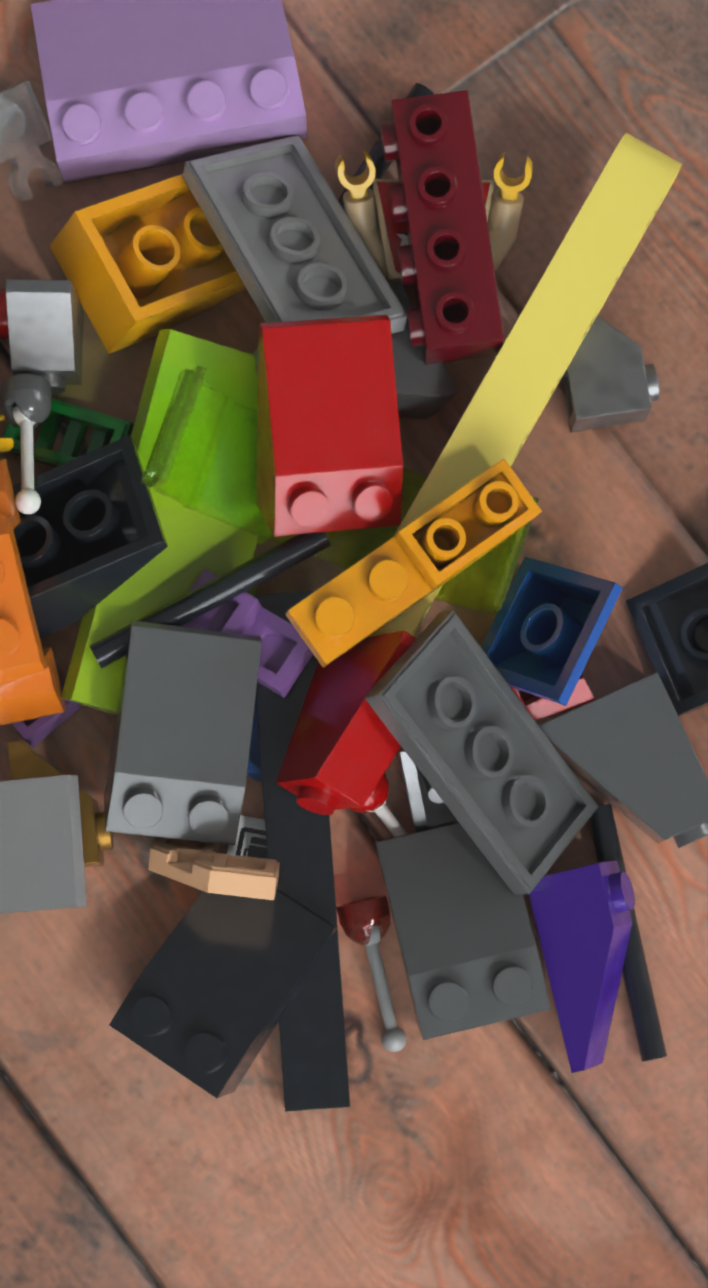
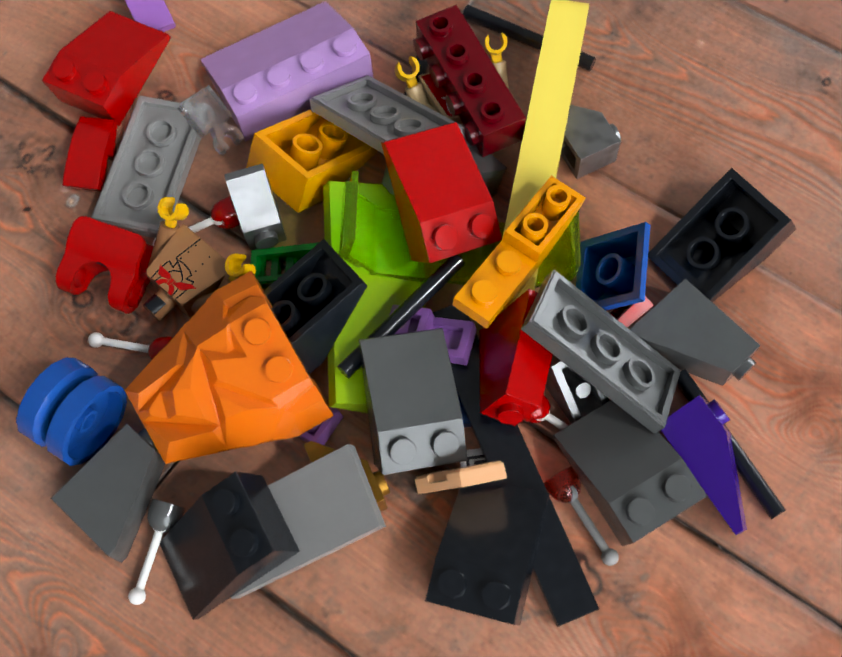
camera: 10 degrees left, 15 degrees down
(25, 403) = (259, 256): hinge -> none
(570, 131) = (516, 32): none -> black bar

